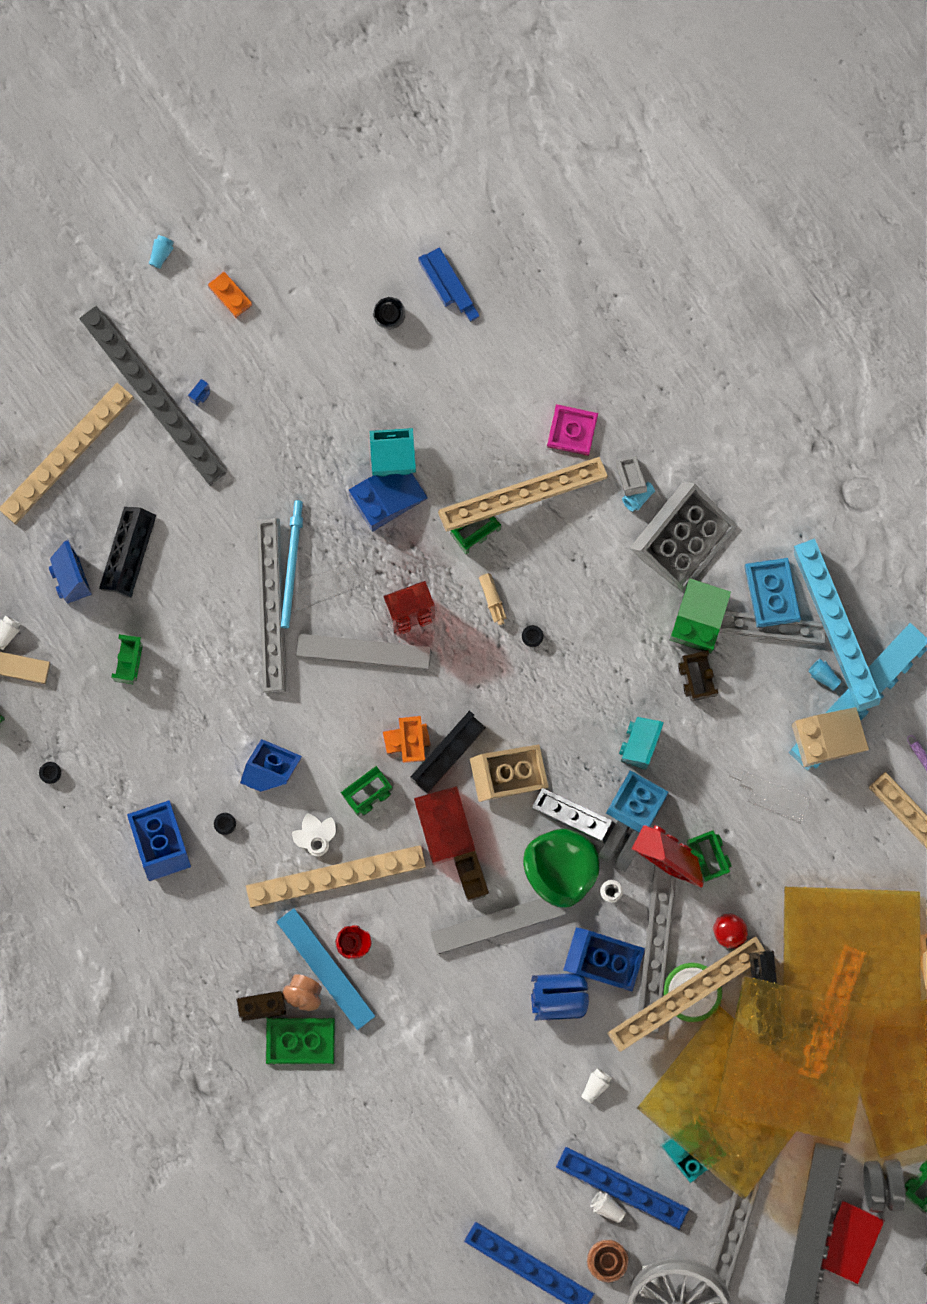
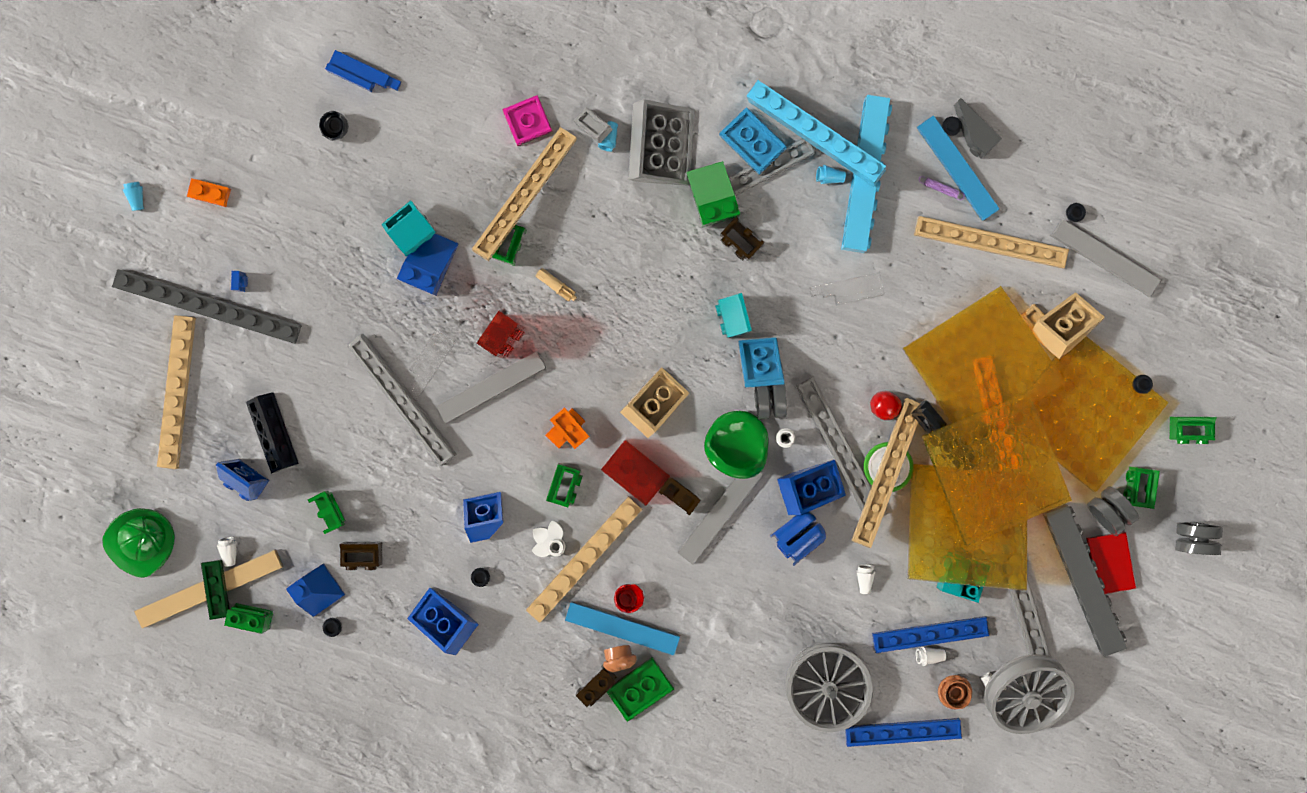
camera: 30 degrees left, 10 degrees up
(60, 727) = (315, 590): none -> blue slope
(135, 716) = (361, 547): none -> dark brown window
(296, 524) = (377, 329): medium azure bar -> none
(447, 752) = (601, 418): black fence -> none
(486, 1167) = (828, 688): none -> light grey wheel
(532, 636) = (603, 292): black plate -> none
(573, 815) = (722, 403): plate -> none
(668, 855) = (810, 385): red slope -> none
(716, 844) = (830, 370): green window -> none
(829, 736) = (866, 219): tan slope -> none

